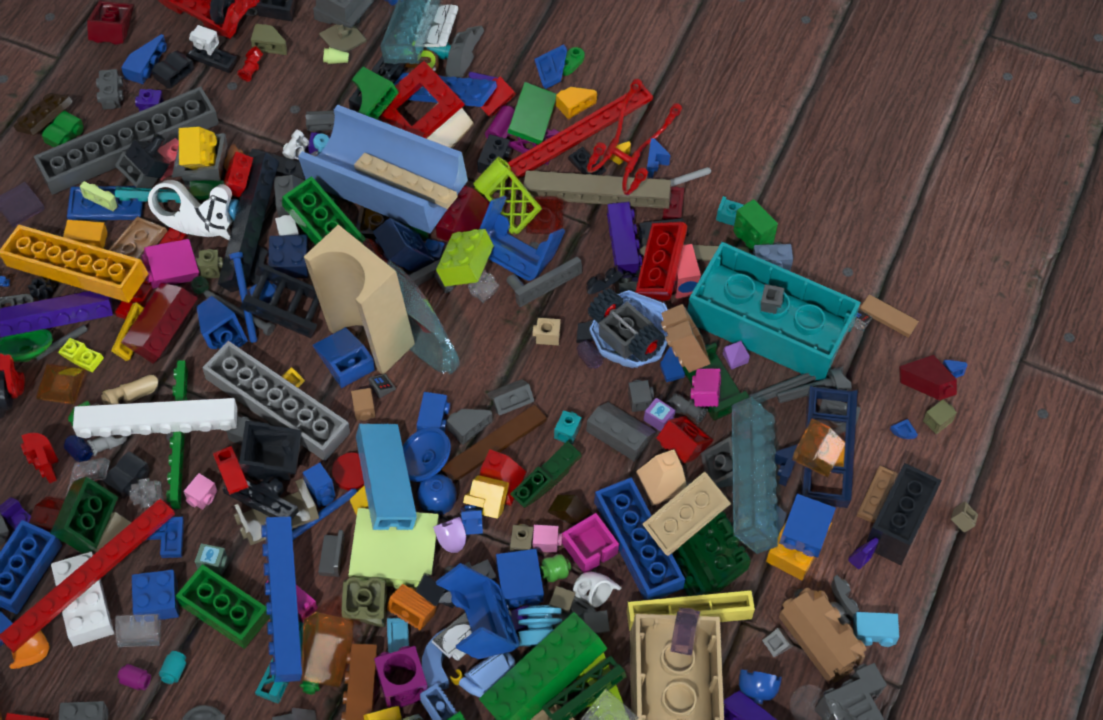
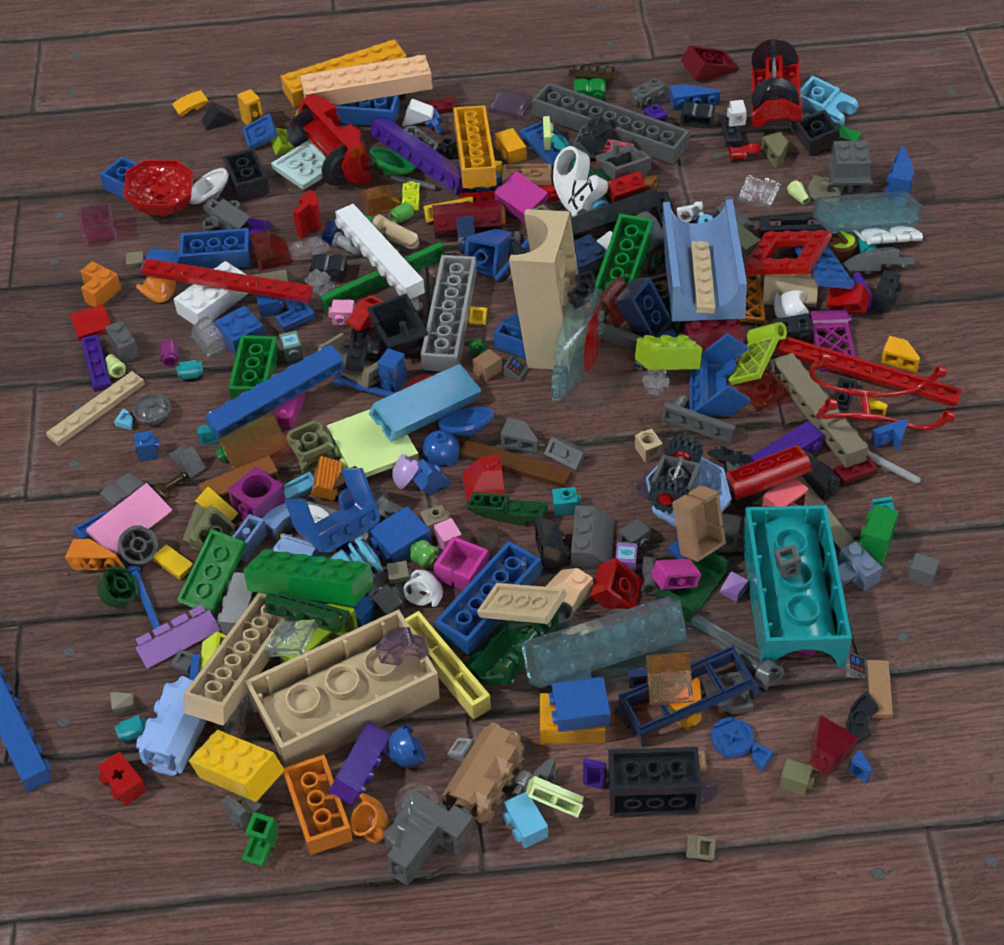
camera: 65 degrees right, 10 degrees down
(84, 515) = (271, 254): dark green brick -> none
(101, 374) = (401, 213): none -> bright green brick
(138, 556) = (269, 305): none -> blue brick
(184, 332) = (465, 228): none -> dark blue slope
(196, 147) = (621, 146): yellow brick -> none
(197, 281) = (519, 225): clear green plate -> none
(307, 83) = (758, 192): none -> clear slope
(332, 555) = (343, 411): dark grey panel -> none
(333, 401) = (477, 351): none -> green plate
(376, 92) = (771, 223): green arch -> none
(433, 411) = (511, 406): blue brick -> none
(468, 141) = (790, 304): none -> white piece
(488, 494) = (456, 475): yellow plate -> none
(500, 65) = (887, 291): none -> black brick
(532, 113) = (856, 331): green tile -> none
(551, 66) = (920, 321): blue wing -> none
(573, 59) = (942, 334): green plate -> none
(610, 464) = (550, 544): none -> black slope
(800, 220) = (922, 569): none -> dark grey brick
(872, 595) = (554, 796): none -> yellowish green piece
(876, 440) = (732, 738): none -> blue tile
(908, 343) = (860, 717): none -> black tile

